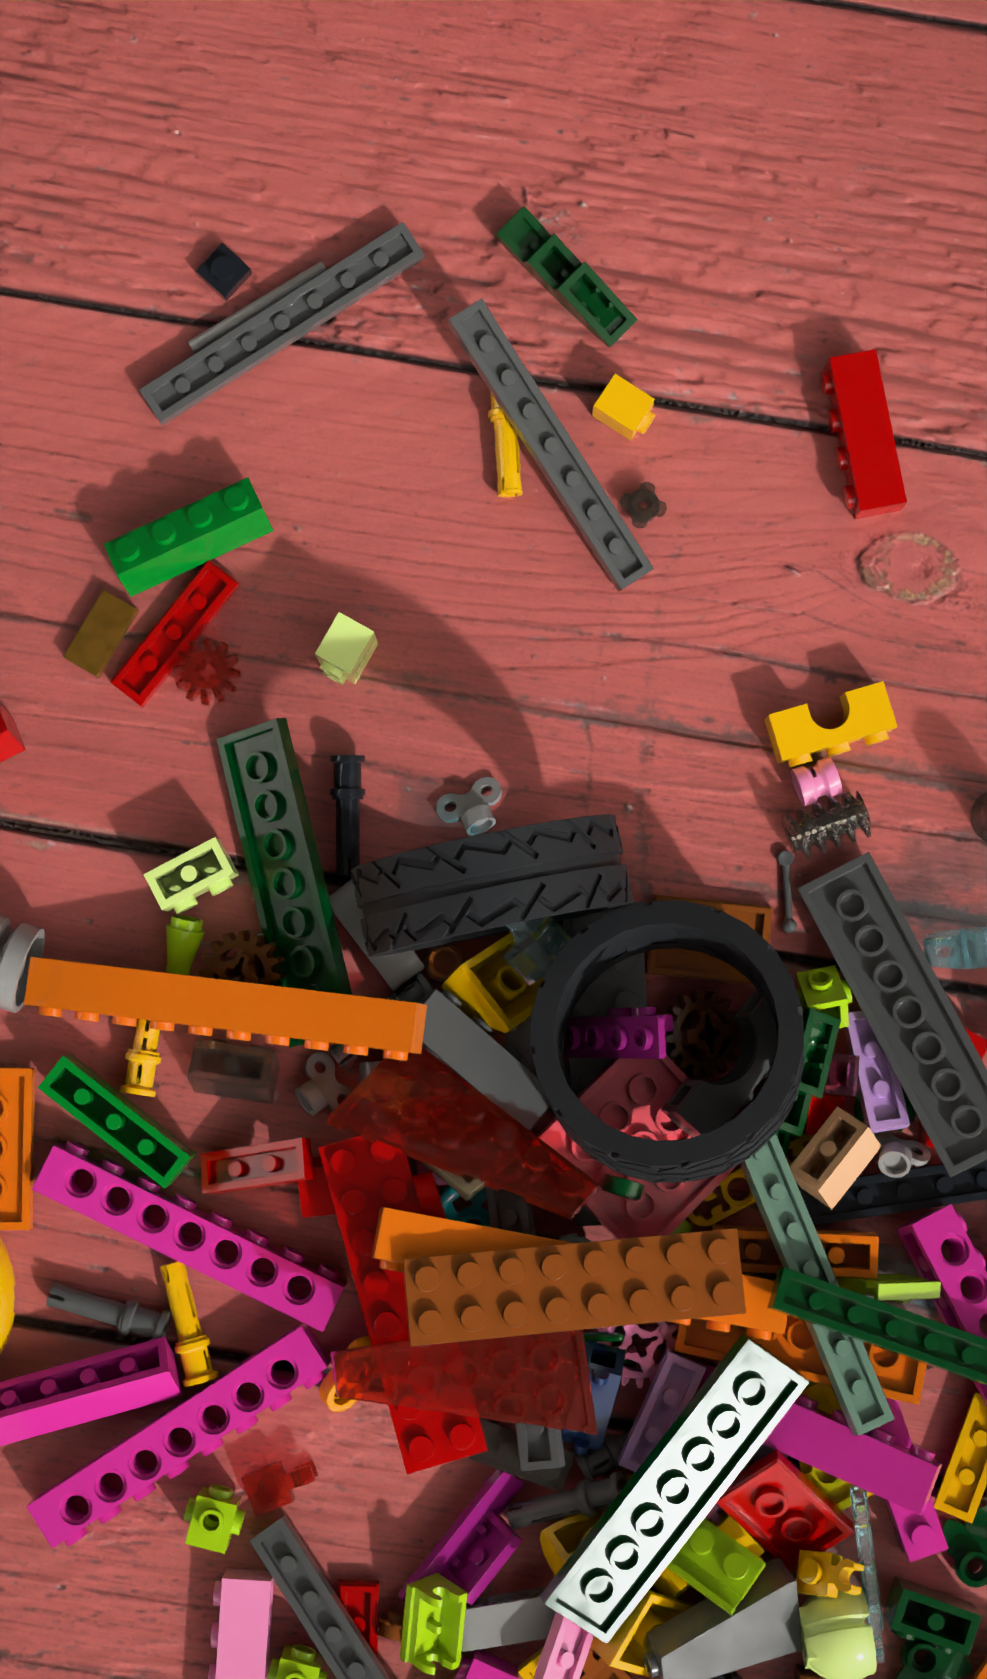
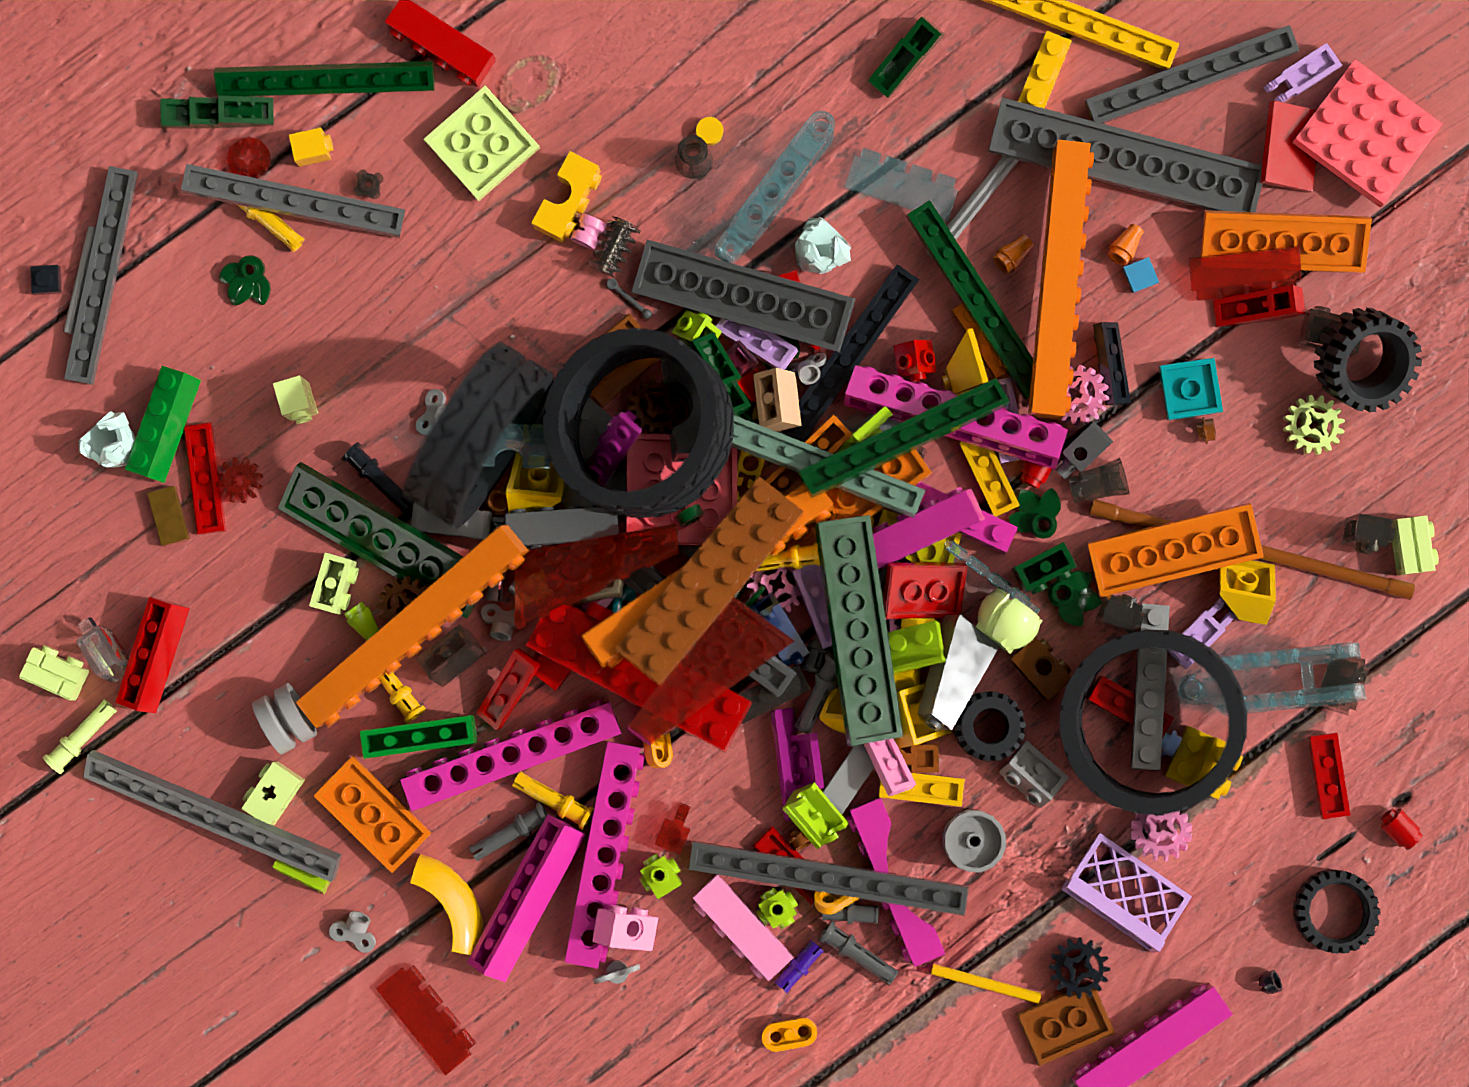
camera: 45 degrees left, 0 degrees up
(68, 1568) = (616, 972): none -> light grey piece
(117, 498) = (109, 441): none -> light aqua helmet
(121, 1538) = (624, 928): none -> bright pink brick
(415, 480) = (246, 285): none -> dark green plate
(550, 373) = (256, 167): none -> clear red gear
(690, 1346) = (794, 557): none -> yellow pin
(709, 354) = (325, 79): none -> dark green plate
(800, 580) = (481, 143): none -> yellowish green plate
(824, 1574) = (970, 599): yellow plate -> none

